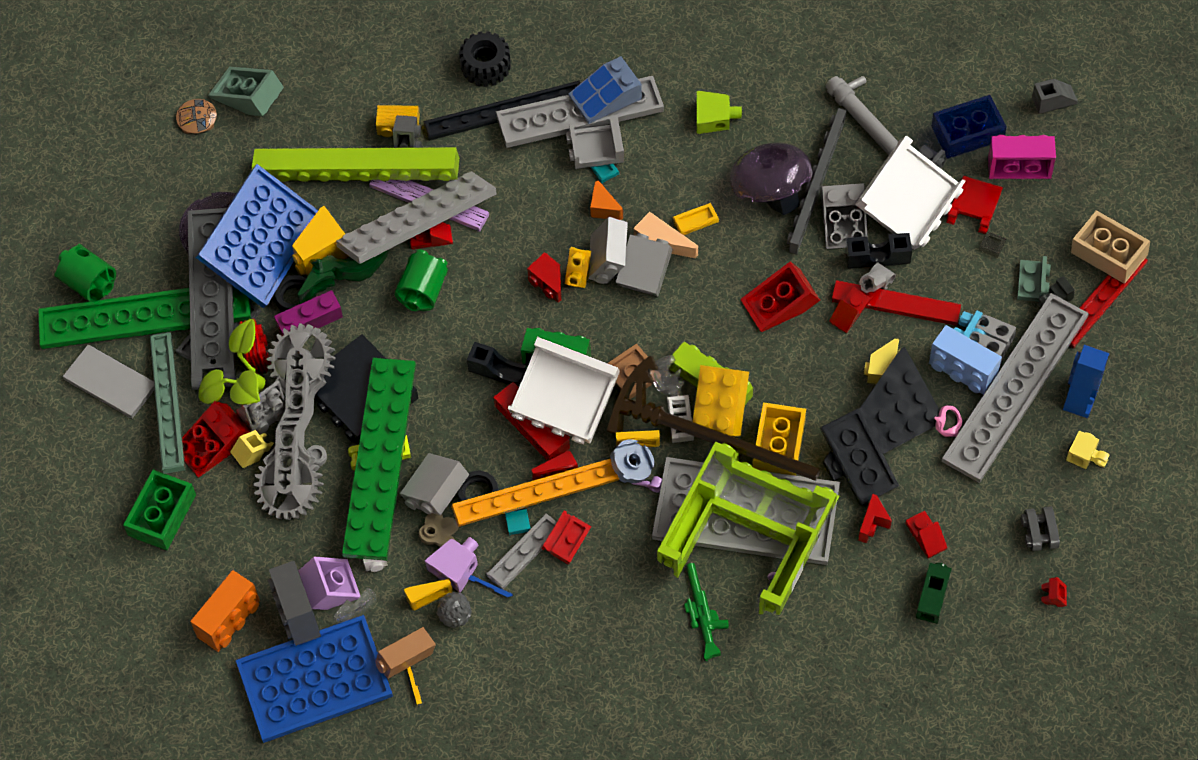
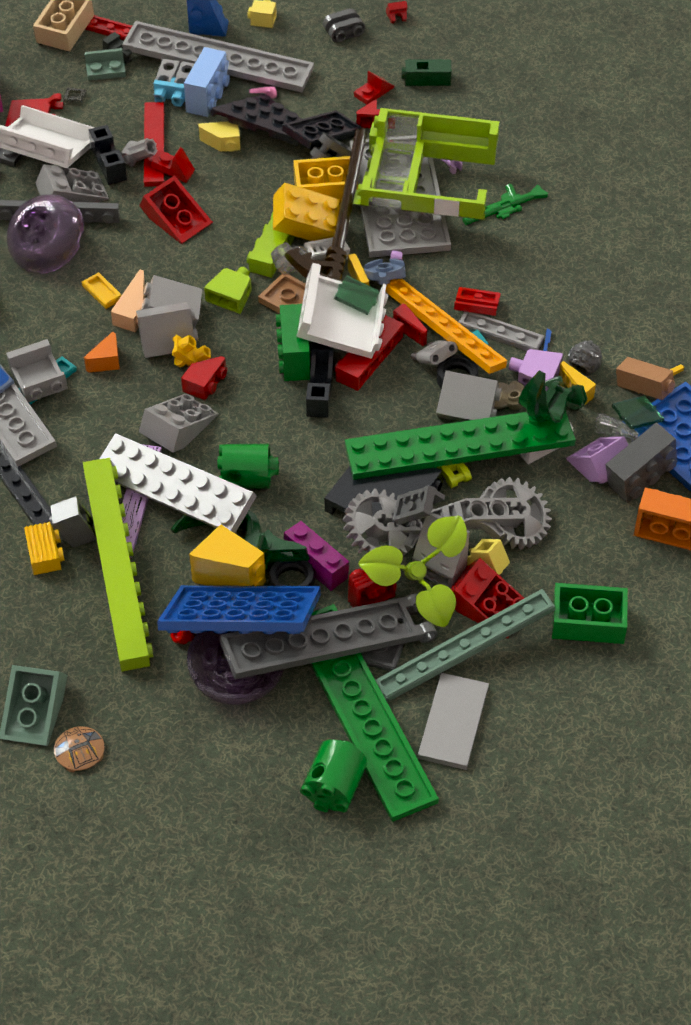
camera: 110 degrees left, 10 degrees down
(293, 376) = (416, 504): none -> dark grey bracket
(363, 629) = (637, 412): none -> clear green piece
(373, 527) = (550, 404): none -> dark green piece
(504, 247) = (176, 421): none -> light grey slope
(504, 473) = (435, 352): none -> light grey piece
(584, 412) = (357, 295): none -> clear green piece
(655, 323) = (229, 289): none -> lime torso
(815, 450) = (330, 143): none -> dark grey brick

